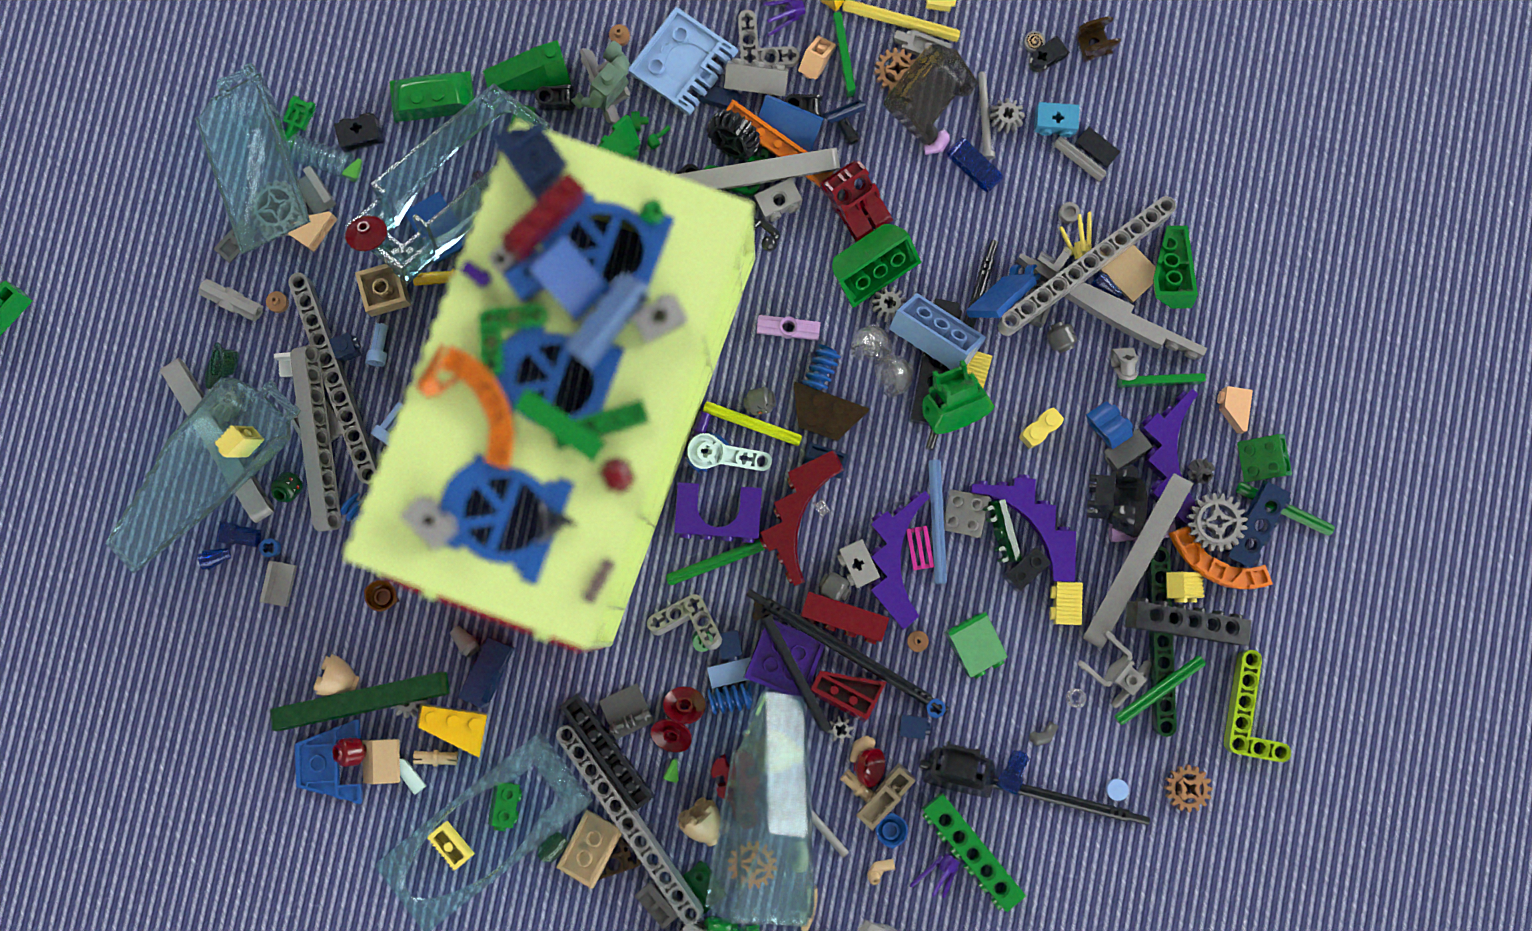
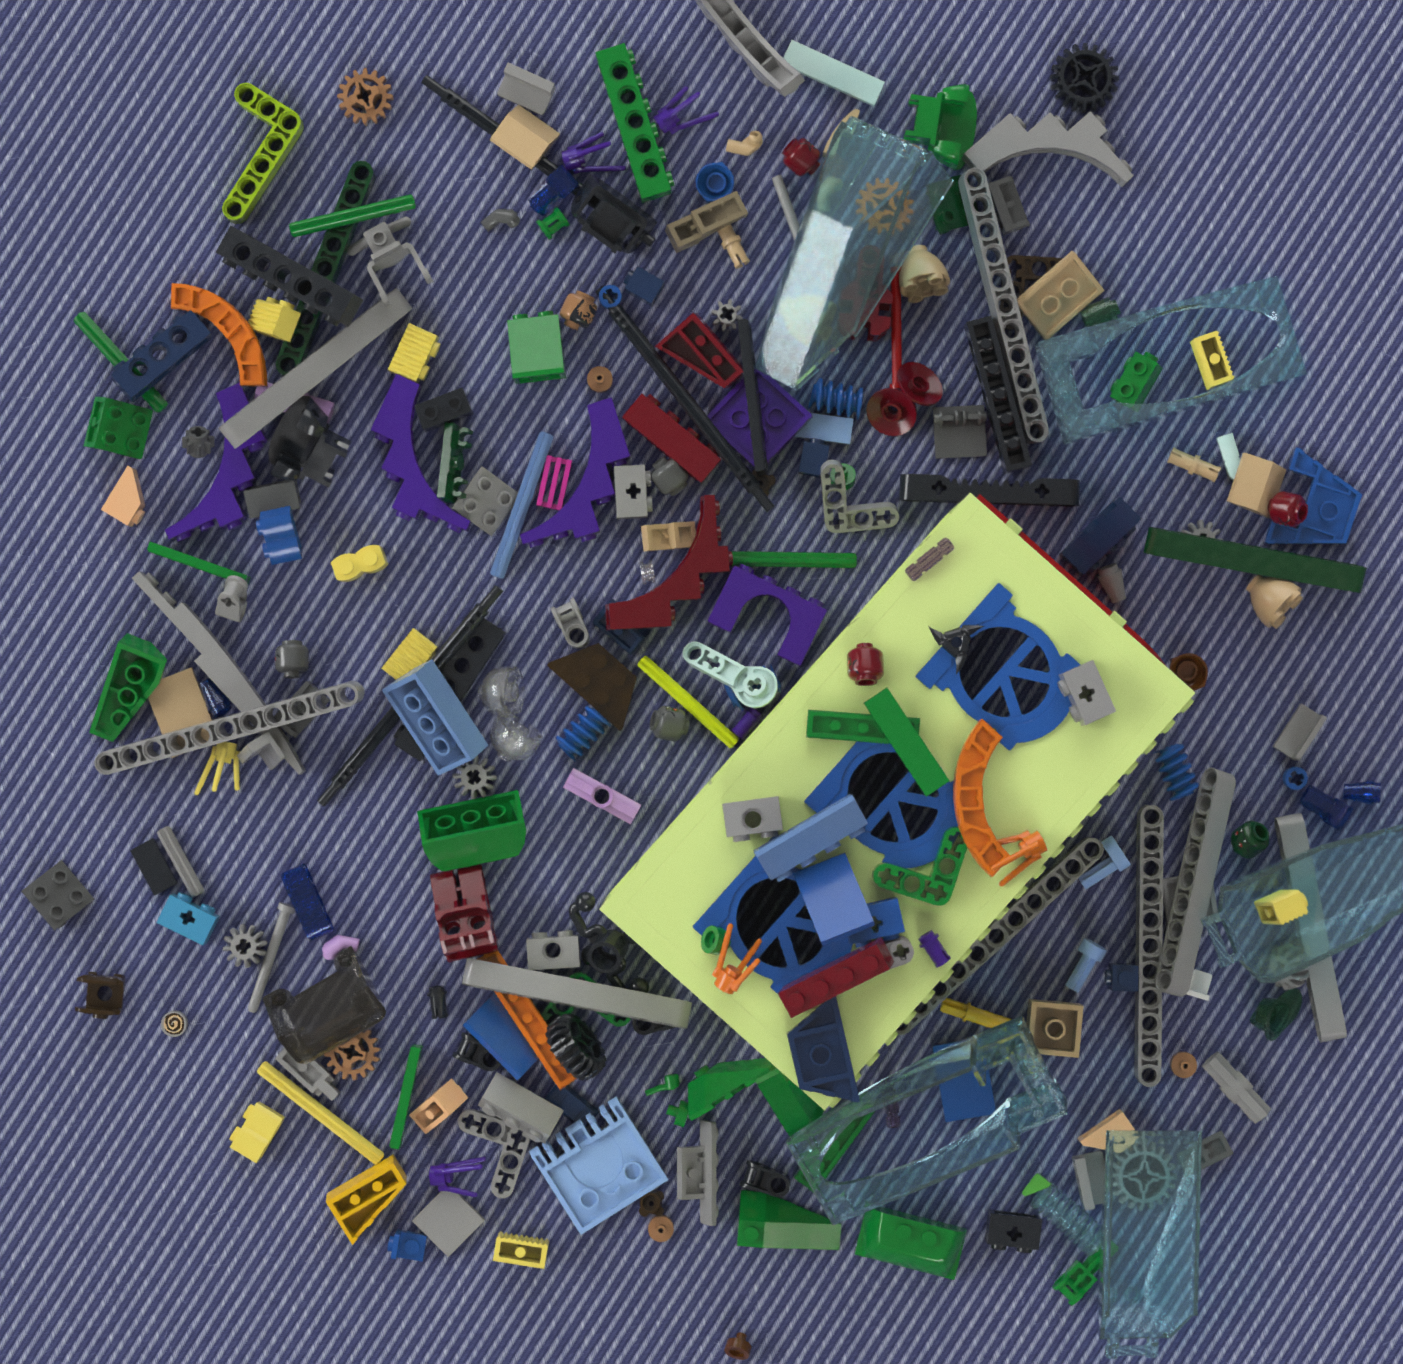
camera: 160 degrees left, 5 degrees up
(366, 233) = (1046, 1083): dark red dish -> none
(454, 725) = (1158, 490): yellow wedge -> none
(532, 694) = (1059, 491): none -> black gear
(609, 81) = (695, 1166): sand green torso -> none
(627, 46) = (656, 1209): none -> dark brown plate
(628, 186) = (731, 977): none -> orange plant
(672, 771) = (934, 343): bright green slope -> none
(705, 769) = (896, 330): none -> red bar
(817, 541) = (668, 536): none -> tan slope
(832, 877) = (801, 157): none -> dark red head
(844, 111) = (432, 1028): dark blue tile -> none
(861, 745) = (712, 288): tan arm -> none
(865, 447) = (571, 622): none -> light grey piece
(870, 767) = (710, 260): dark red piece -> none
(955, 687) = (578, 310): none -> medium nougat head
(962, 398) = (438, 629): green piece -> none
(1004, 293) = (338, 733): blue tile -> none
(1007, 806) = (575, 156): none -> dark purple plant
(1009, 744) = (556, 215): none -> green bush
(1048, 55) = (161, 1000): black piece -> none
(1053, 806) = (524, 136): none -> tan slope
(1066, 844) = (526, 89): none -> light grey panel
(1068, 212) = (220, 802): light grey tile -> none
(1082, 695) = (440, 246): clear bush -> none
(1117, 789) = (444, 127): light blue tile -> none
(1159, 98) = (57, 895): none -> dark grey hinge
(1216, 514) = (187, 369): light grey gear -> none

